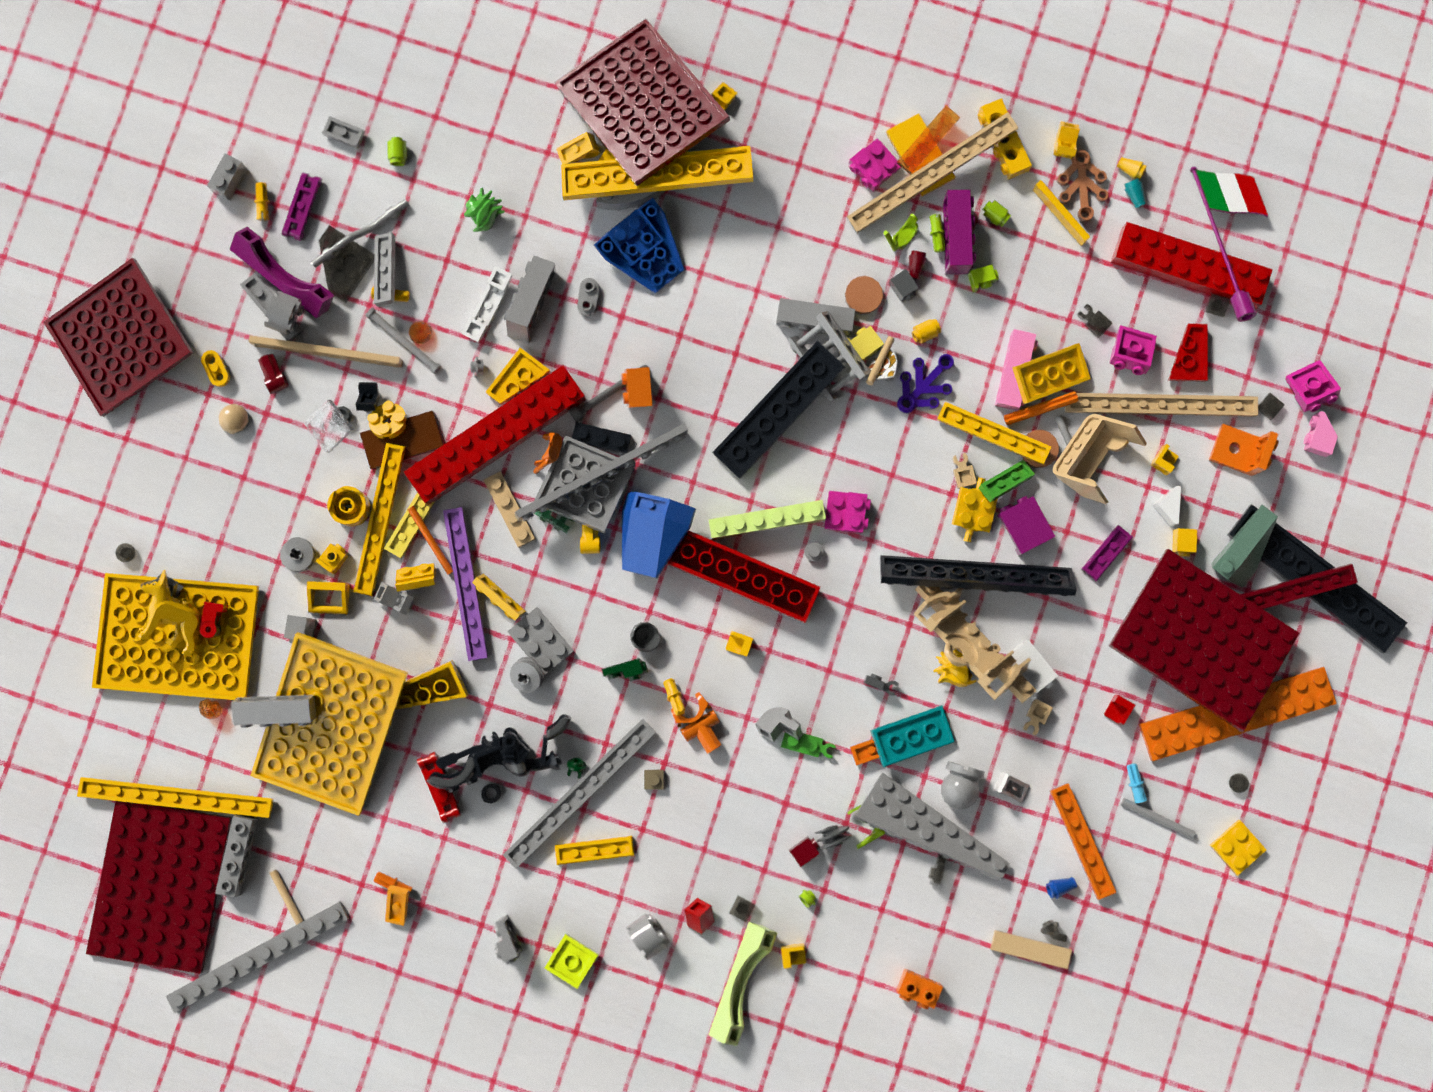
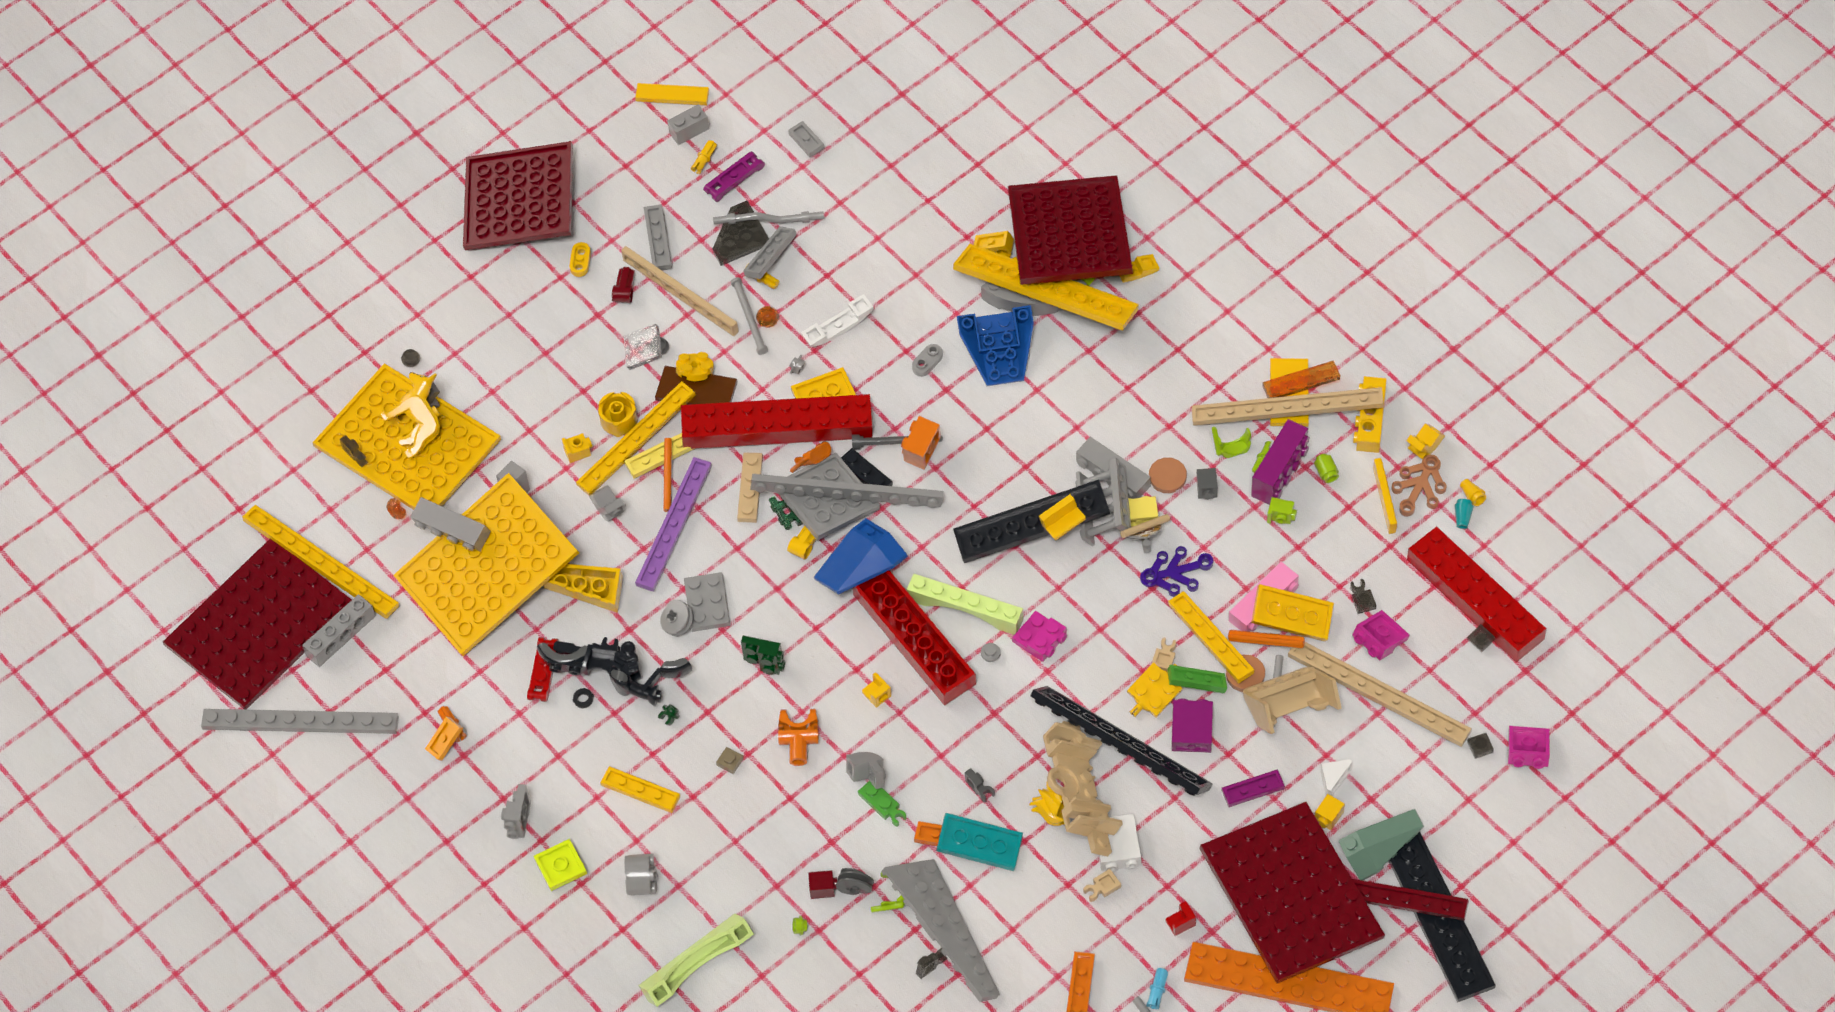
camera: 30 degrees right, 25 degrees down
(132, 677) = (351, 448): none -> clear smoke plate
(191, 151) = (672, 94): none -> yellow tile
(211, 618) = (446, 437): red leg -> none
(233, 418) = (568, 303): tan hair -> none
(252, 250) = (671, 187): magenta arch -> none
(283, 313) = (664, 240): light grey brick -> none
(286, 897) = (356, 686): tan bar -> none
(288, 554) = (550, 429): light grey piece -> none
(328, 586) = (557, 466): yellow tile -> none
(368, 396) = (691, 341): black bracket -> none
(397, 151) = (840, 173): lime brick -> none
(415, 577) = (630, 493): yellow plate -> none
(483, 210) = (881, 249): bright green hair -> none
(498, 597) = (694, 547): yellow plate -> none
(529, 298) = (875, 334): light grey wedge -> none
(579, 793) = (658, 736): light grey plate -> none
(645, 637) = (797, 640): dark grey hair -> none
(674, 696) = (791, 699): yellow axle -> none
(699, 915) = (695, 888): red panel -> none
(742, 908) = (736, 902): clear smoke plate -> none
(793, 955) = (755, 964): yellow panel -> none
(809, 397) = (1062, 517): none -> yellow panel
(874, 164) = (1242, 379): dark pink plate -> none
(916, 263) = (1230, 472): dark red cone -> none
(926, 331) = (1203, 528): yellow brick -> none
(961, 786) = (994, 901): light grey tile -> none
(1011, 787) = (1040, 929): white slope -> none
(1165, 460) = (1353, 738): yellow panel -> none
(1192, 355) = (1432, 667): red wing -> none
(1231, 195) = (1546, 555): flag -> none
(1252, 453) = (1440, 768): orange bracket -> none
(1321, 436) = (1509, 792): bright pink slope -> none

